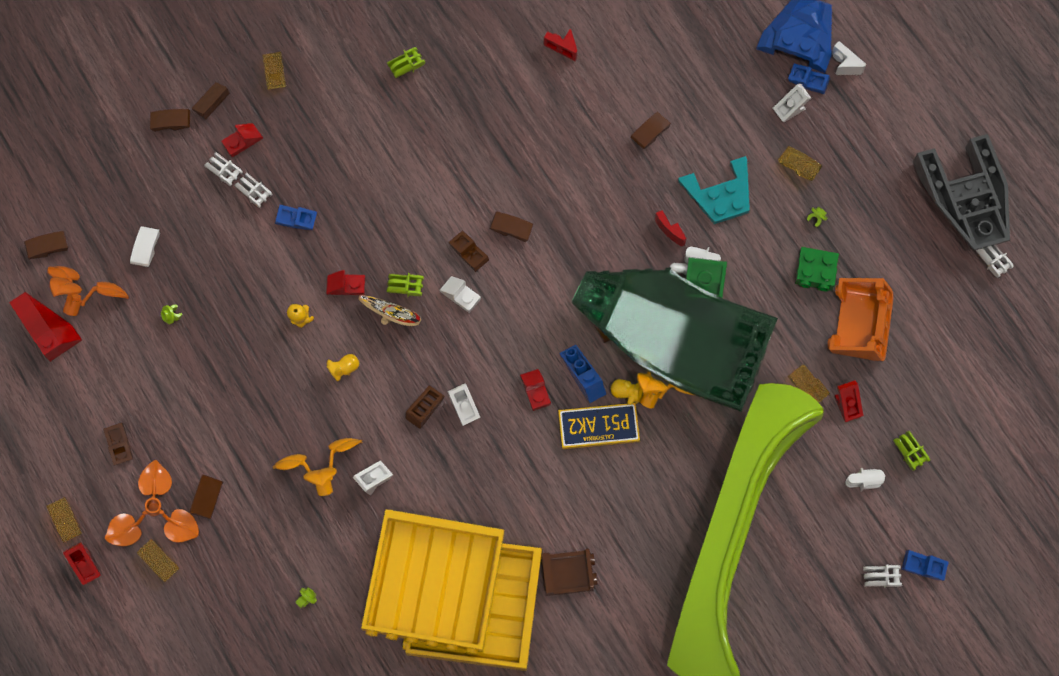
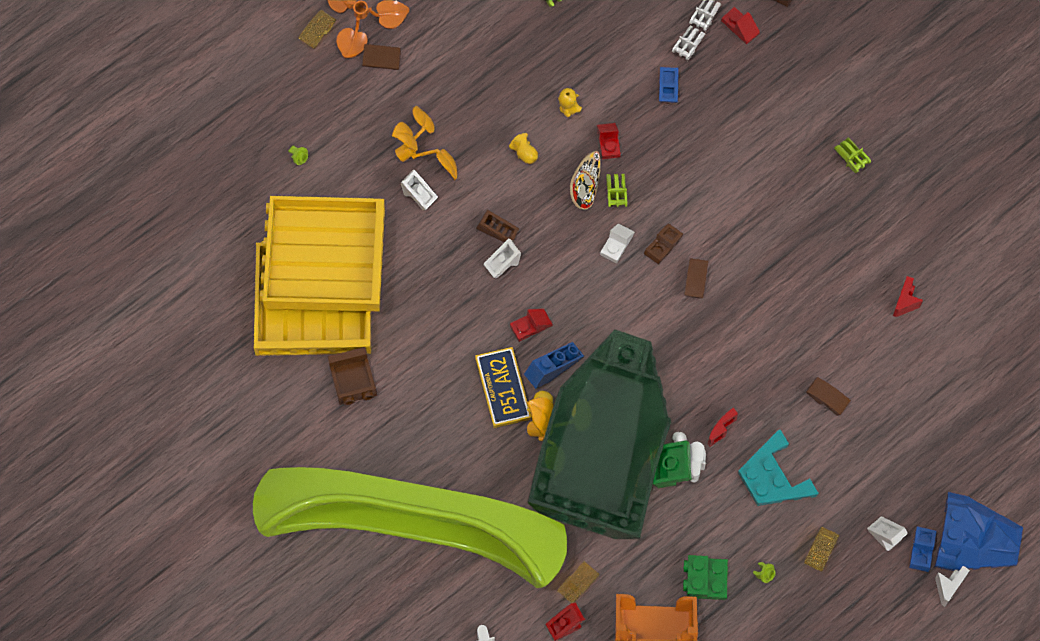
camera: 80 degrees right, 5 degrees down
(274, 70) = (818, 41): clear yellow slope -> none

